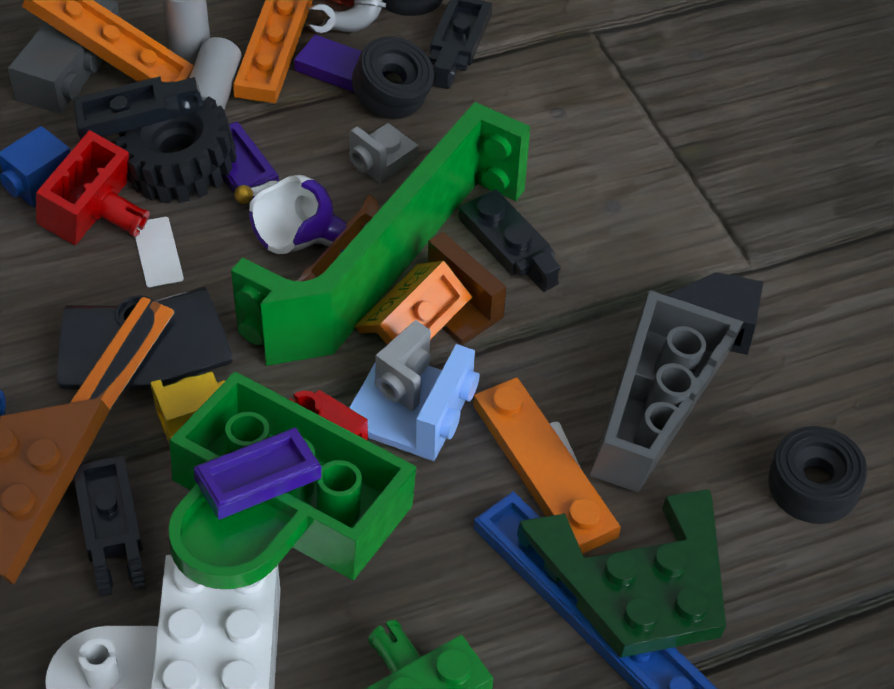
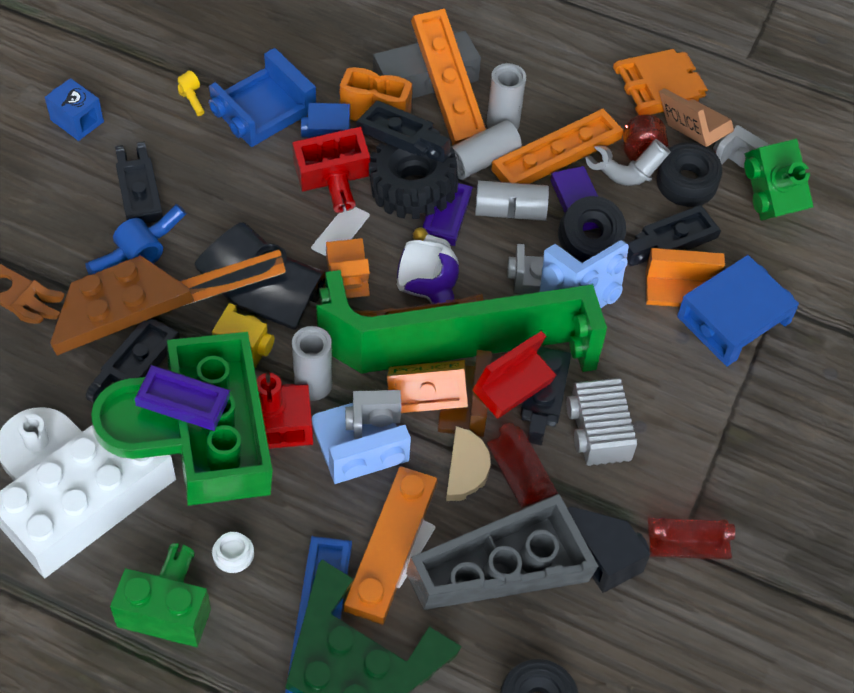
camera: 45 degrees right, 5 degrees up
(50, 100) = (364, 87): none -> orange brick
(210, 264) = (350, 259): none -> orange brick
(290, 105) = (512, 200): none -> light grey pin
(298, 357) = (313, 361): none -> light grey pin
(422, 596) = (233, 552): none -> white plate
(432, 114) = (602, 270): none -> light blue bracket
(493, 235) = (514, 377): none -> red panel
(507, 63) = (677, 272): none -> orange panel
(524, 347) = (468, 465): none -> tan tile
(579, 313) = (521, 466): none -> clear red hinge
(581, 55) = (736, 308): none -> blue panel
(590, 219) = (602, 421): none -> light grey brick
(764, 248) = (690, 538): none -> clear red hinge

